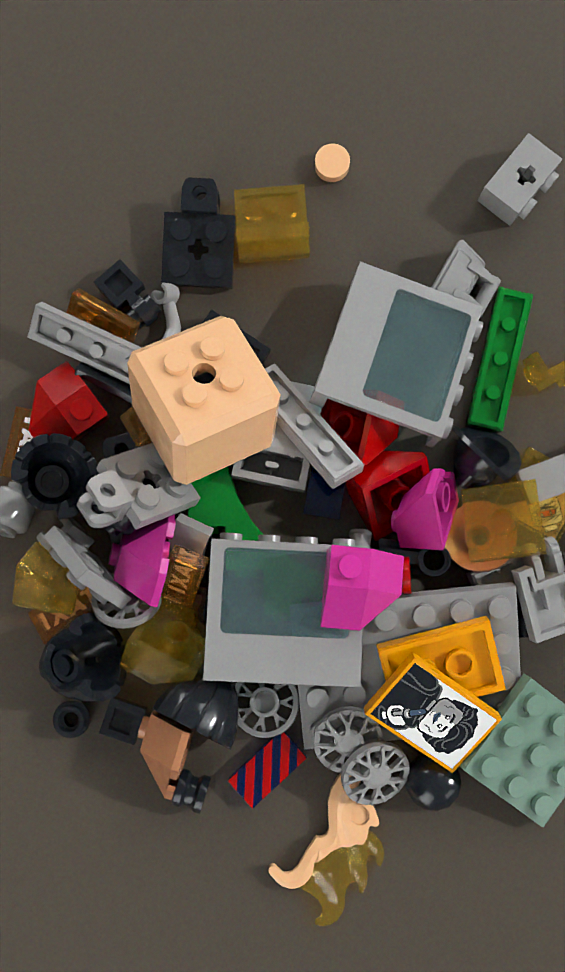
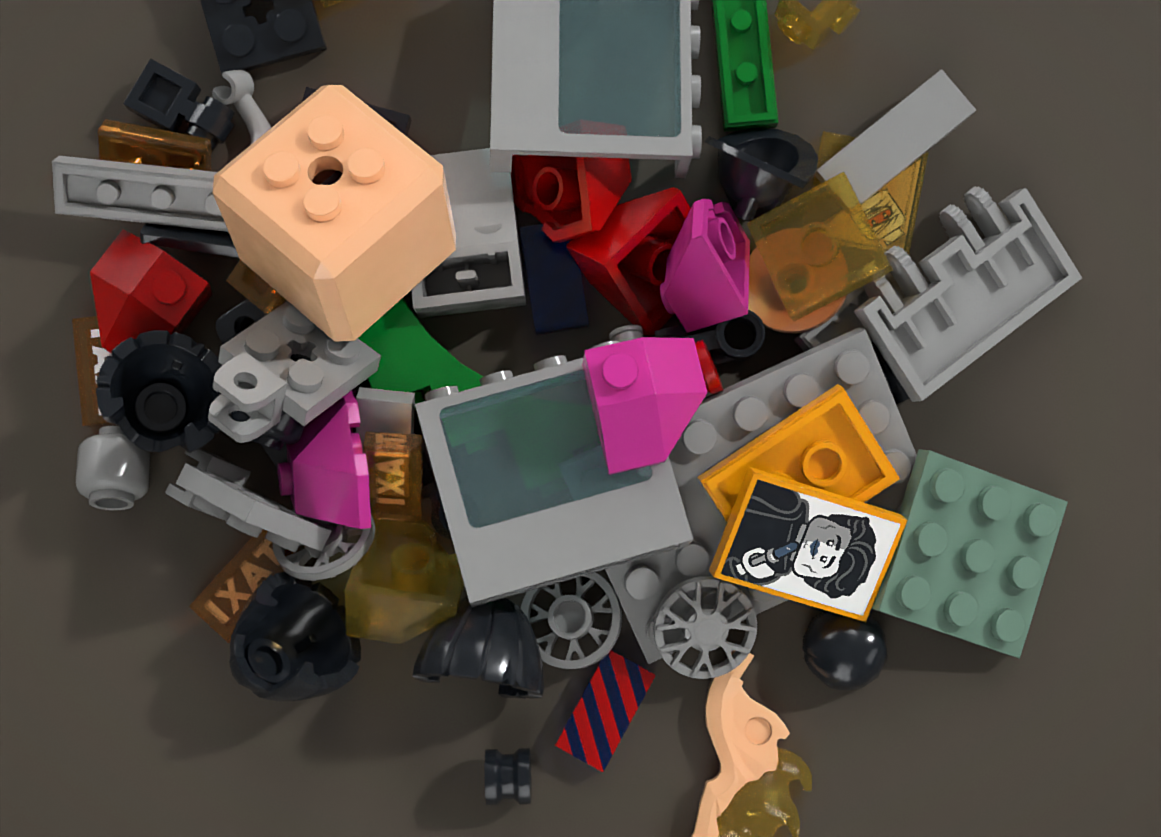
camera: 20 degrees left, 0 degrees up
(43, 583) = (199, 552): clear yellow piece -> none
(60, 719) = (287, 742): black plate -> none
(123, 720) = (378, 711): black plate -> none
(165, 749) = (451, 727): nougat slope -> none
(313, 434) = (511, 213): light grey tile -> none
(375, 773) = (758, 660): light grey wheel -> none

